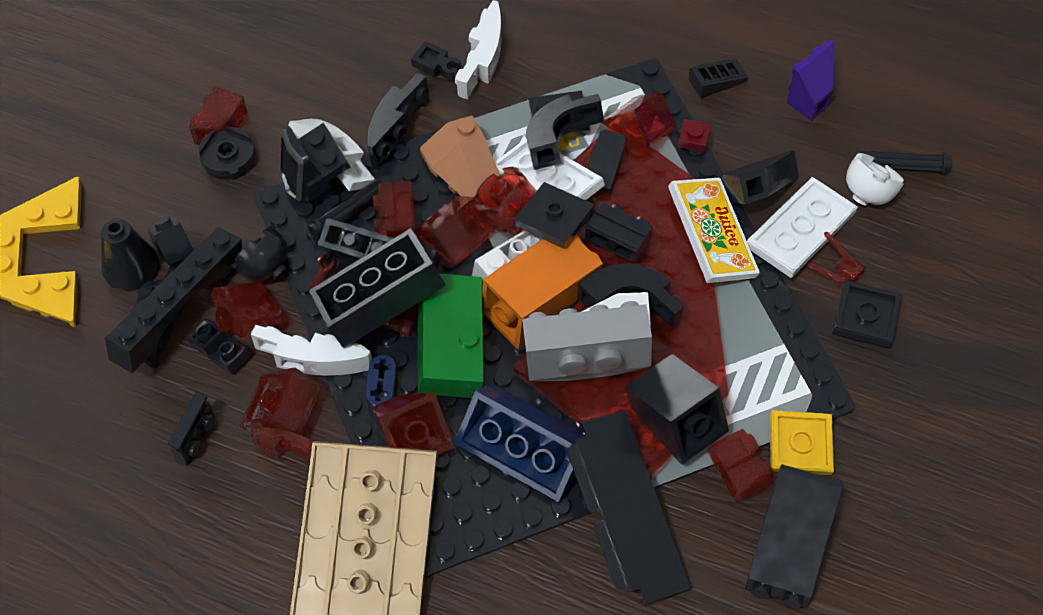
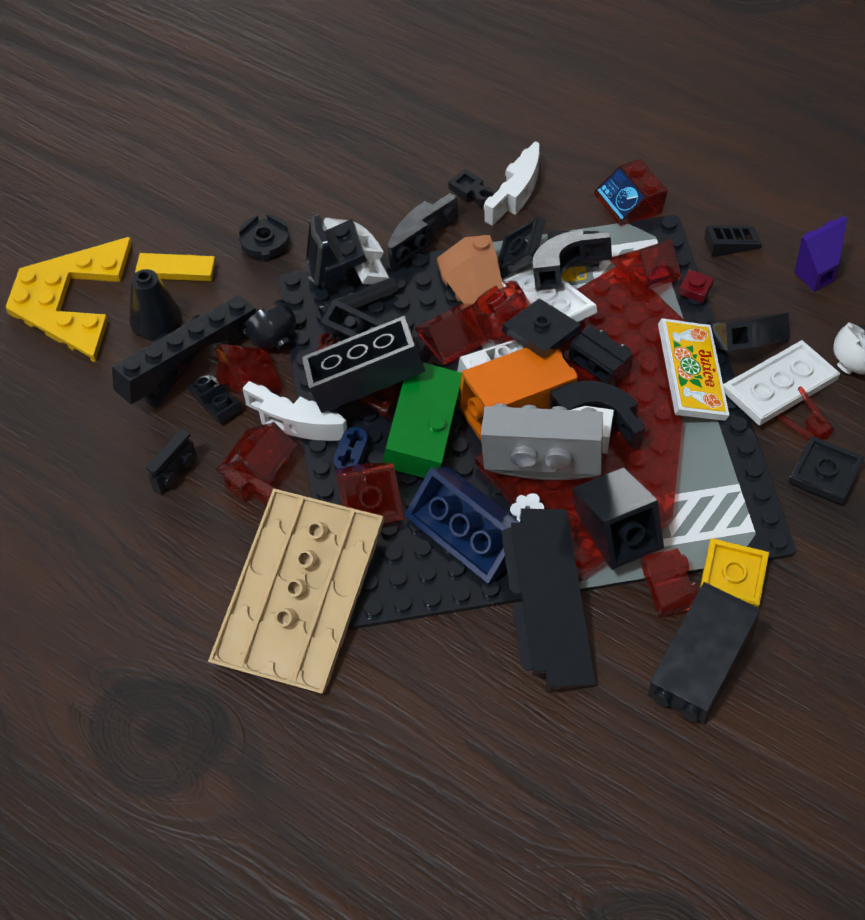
camera: 15 degrees right, 5 degrees down
(138, 202) = (178, 266): none -> yellow tile
(170, 239) = (192, 297): black slope -> none
(218, 111) = (264, 200): clear red slope -> none
(395, 208) = (401, 300): clear red brick -> none
(506, 122) = (520, 246): none -> black plate
(584, 406) = (530, 501): none -> white plant
(606, 42) = (632, 193): none -> slope
(607, 156) = (607, 289): black slope -> none

